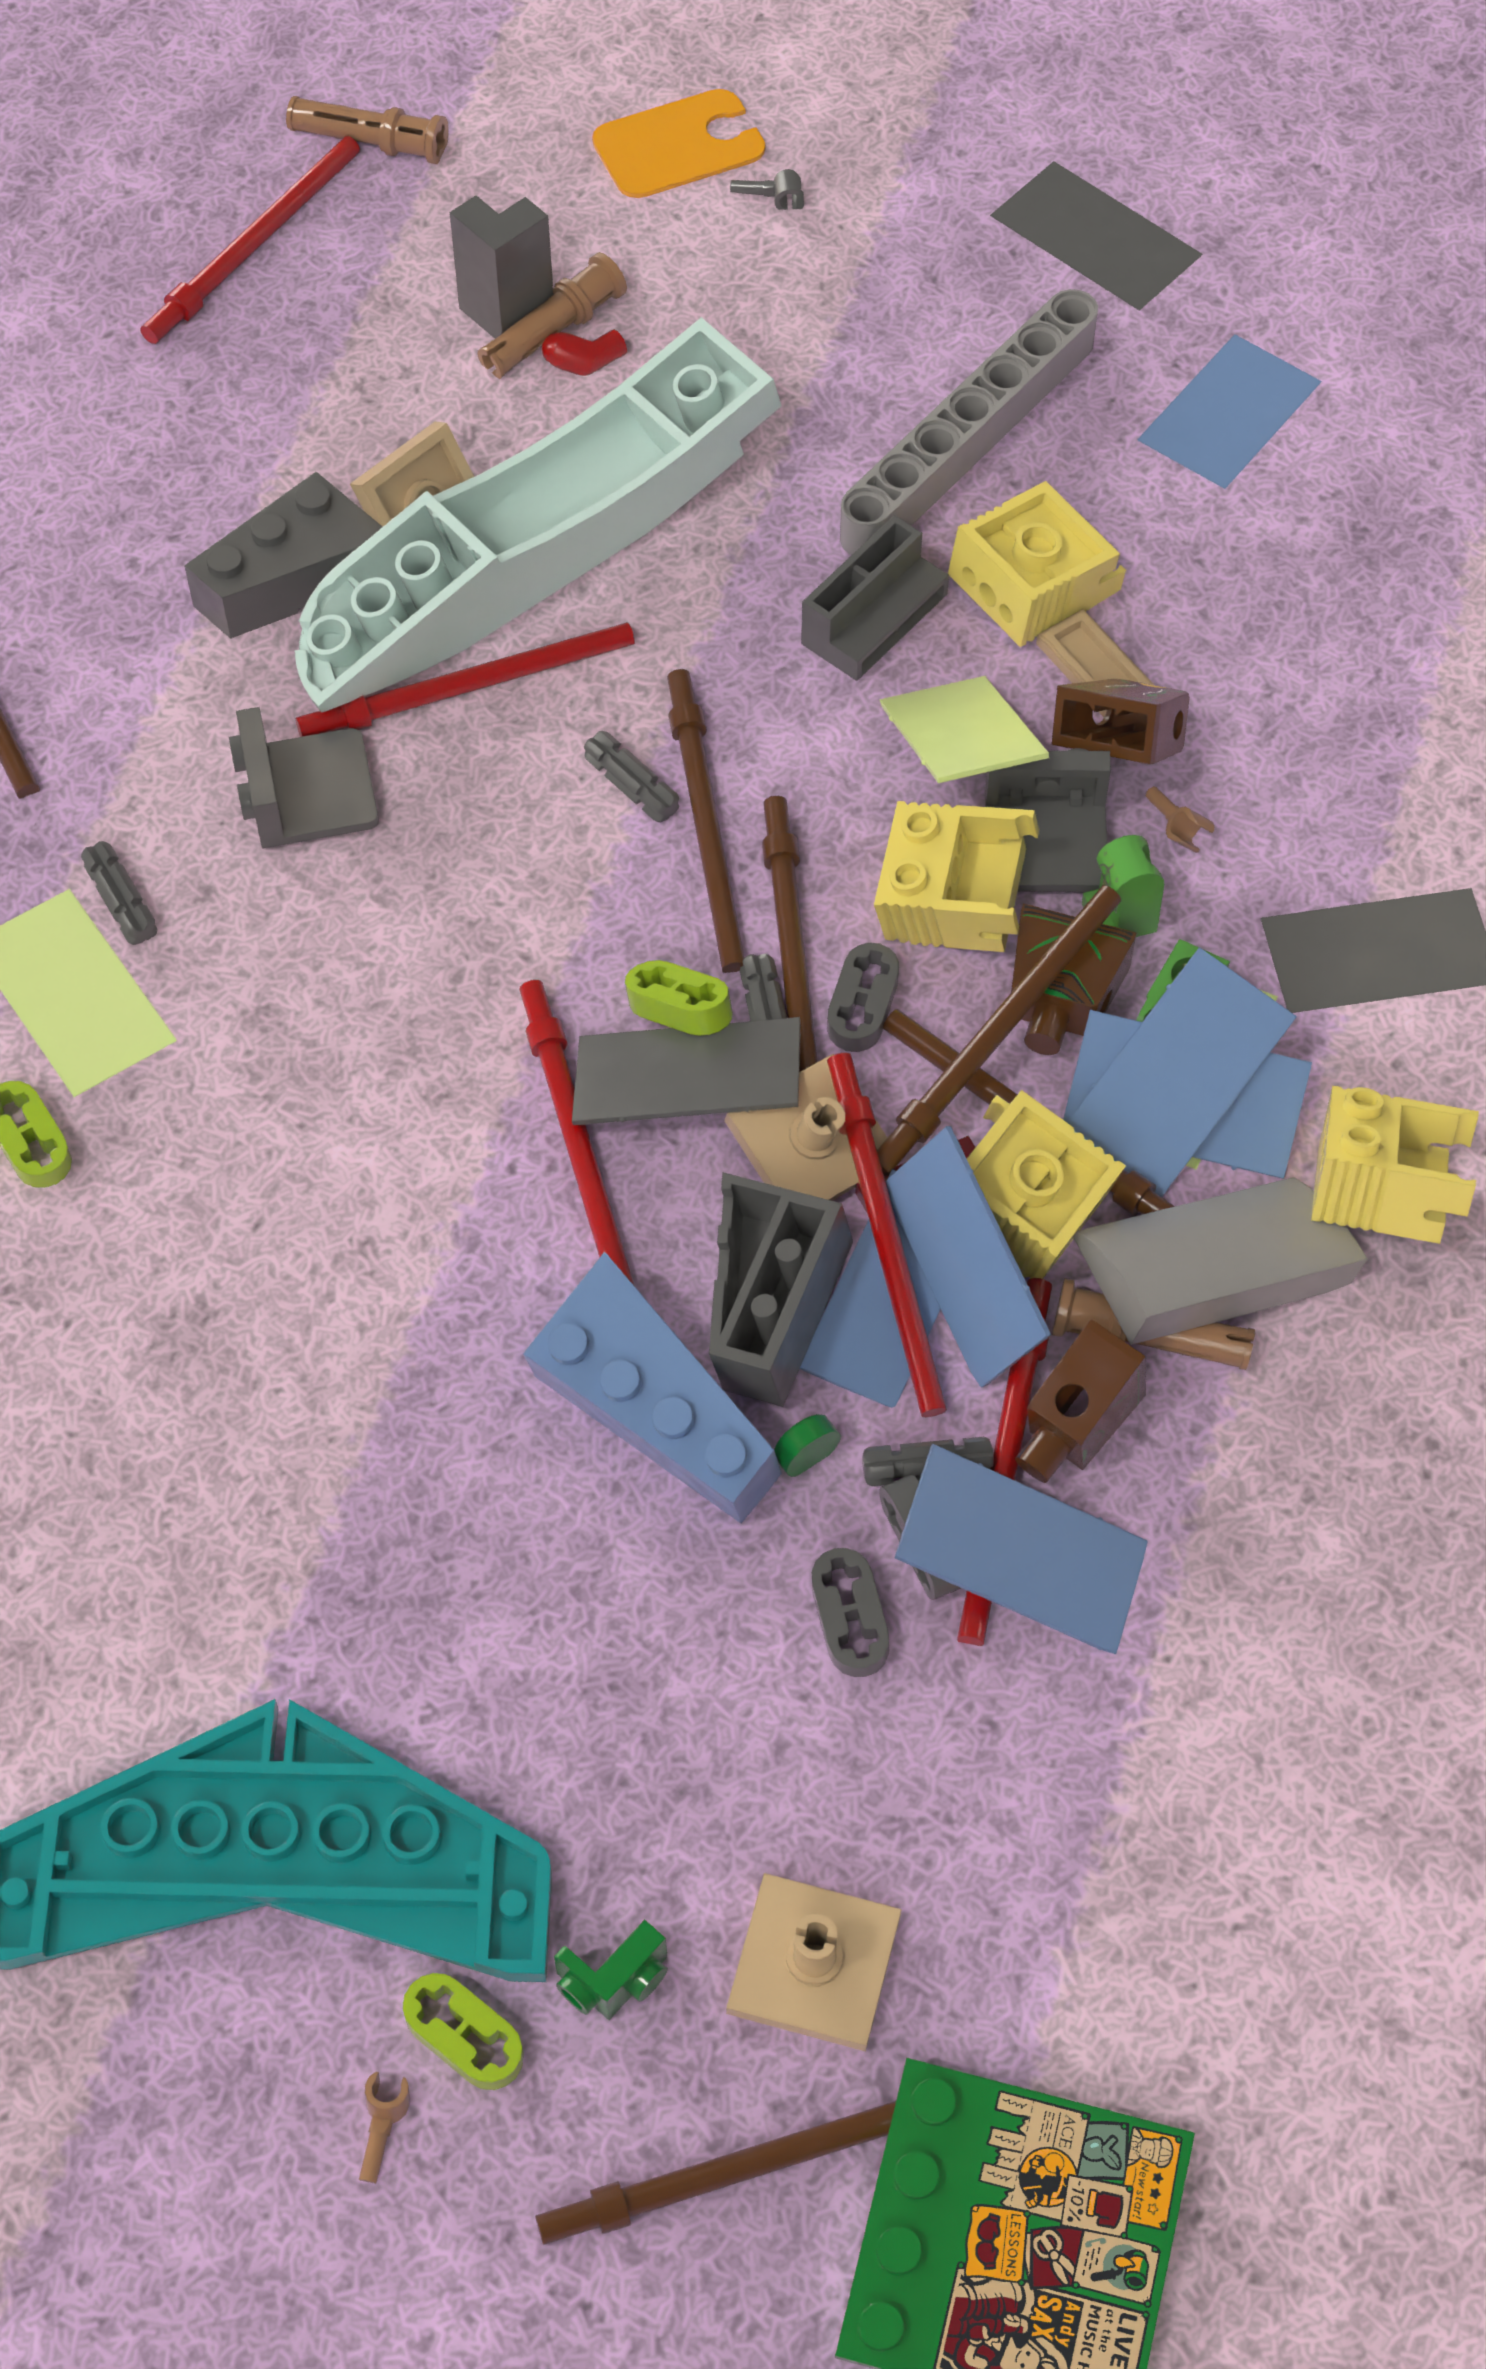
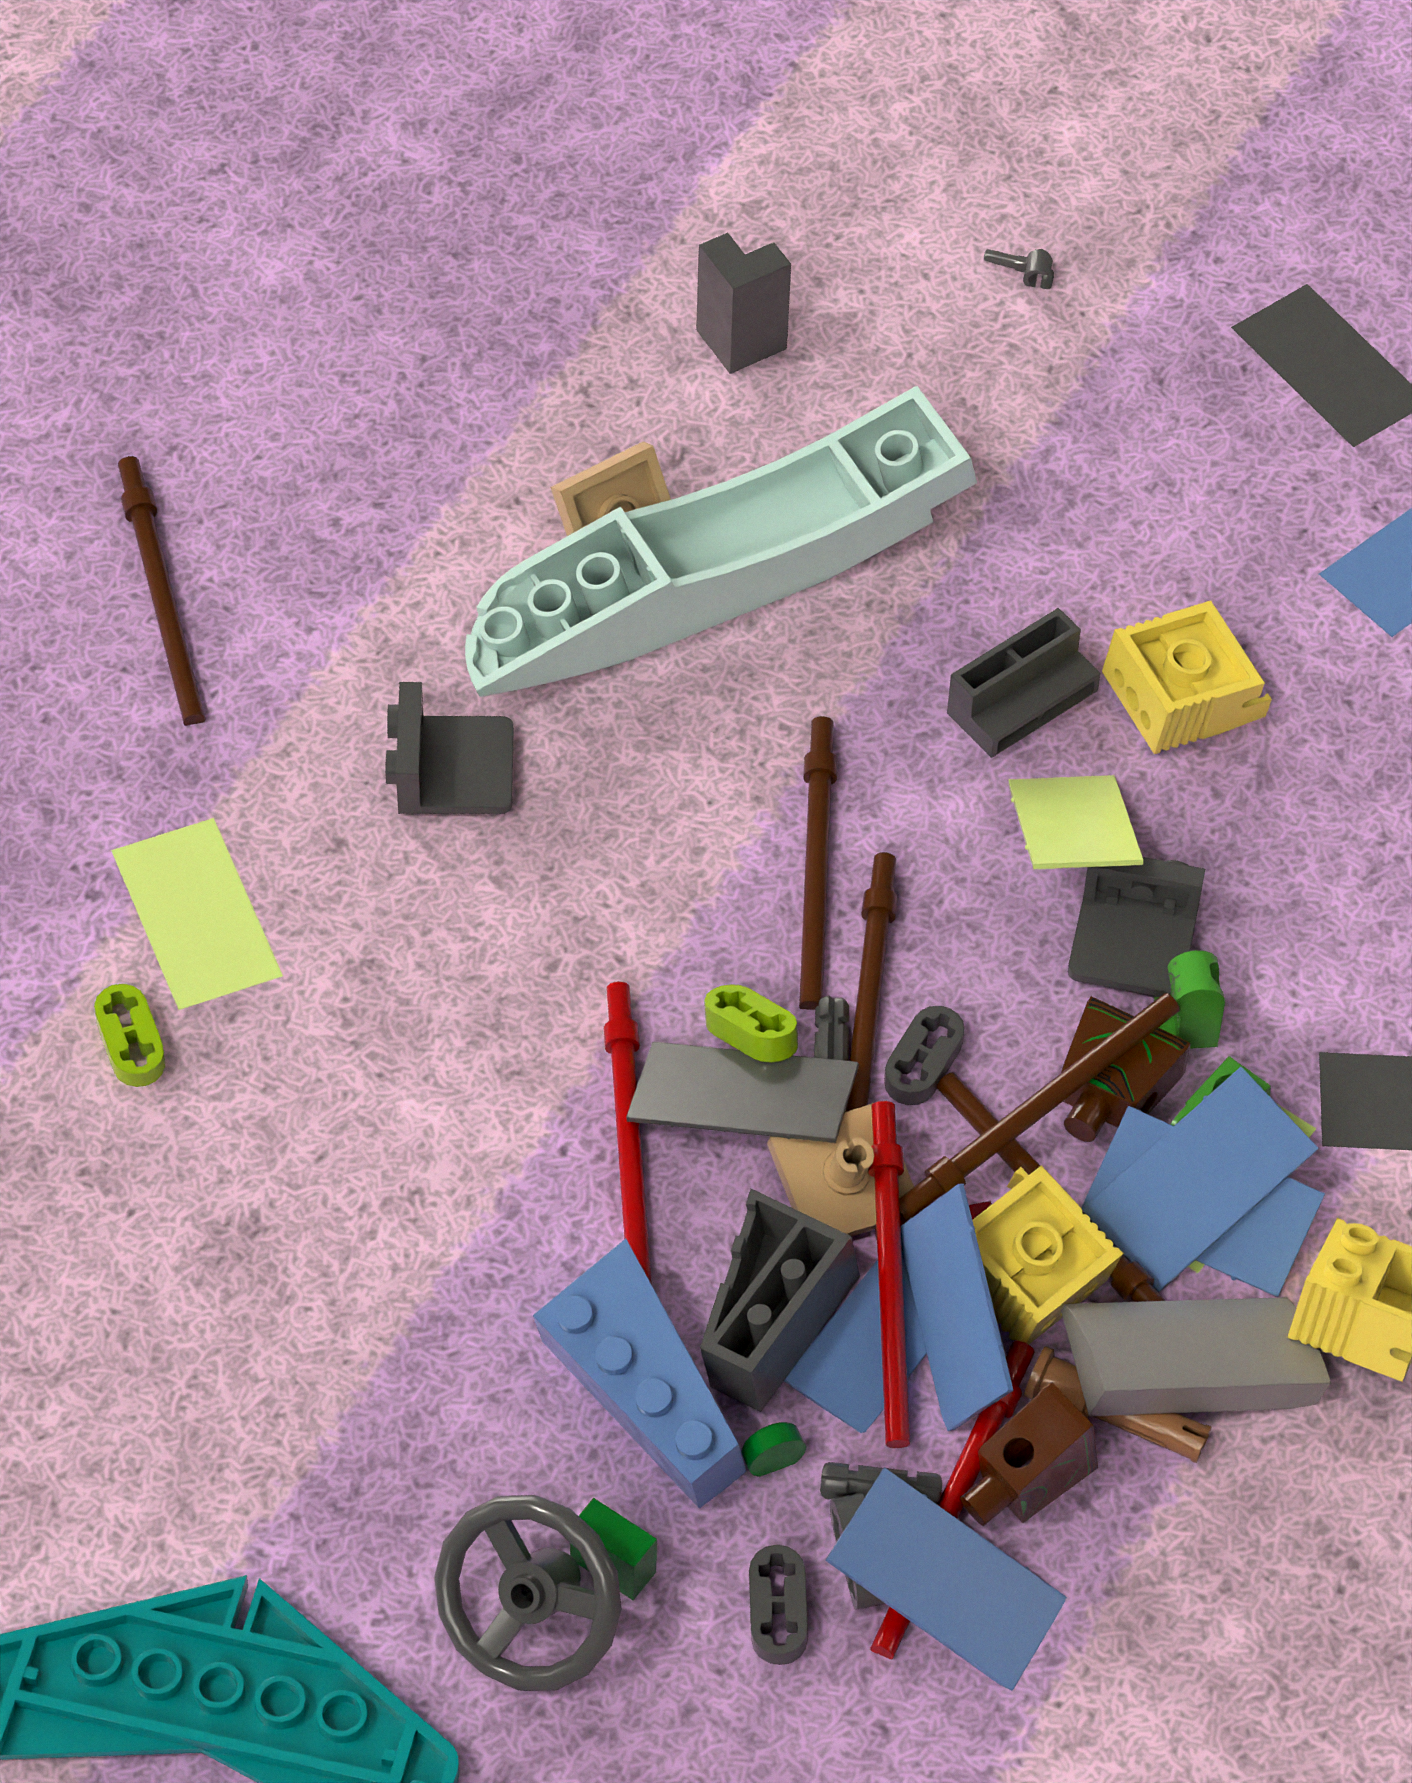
camera: 10 degrees right, 5 degrees down
(119, 893) = (258, 830): dark grey axle -> none
(187, 298) = (440, 276): red bar -> none
(277, 557) = (470, 542): dark grey wedge -> none
(362, 710) = (517, 702): red bar -> none
(390, 130) = (674, 144): medium nougat pin -> none
(571, 303) = (802, 345): medium nougat pin -> none
(582, 355) = (802, 397): red arm -> none
(587, 1655) = (530, 1590): none -> dark grey piece
(631, 776) = (756, 809): dark grey axle -> none
(663, 1588) = (627, 1544): none -> green piece
(672, 144) = (938, 203): light orange piece -> none
(953, 875) = (1032, 957): light yellow piece -> none
(971, 418) = (1161, 525): light grey beam -> none
(1087, 652) = (1221, 783): tan tile -> none
(1140, 722) = (1245, 853): reddish brown torso -> none
(1182, 821) = (1265, 949): medium nougat hand -> none

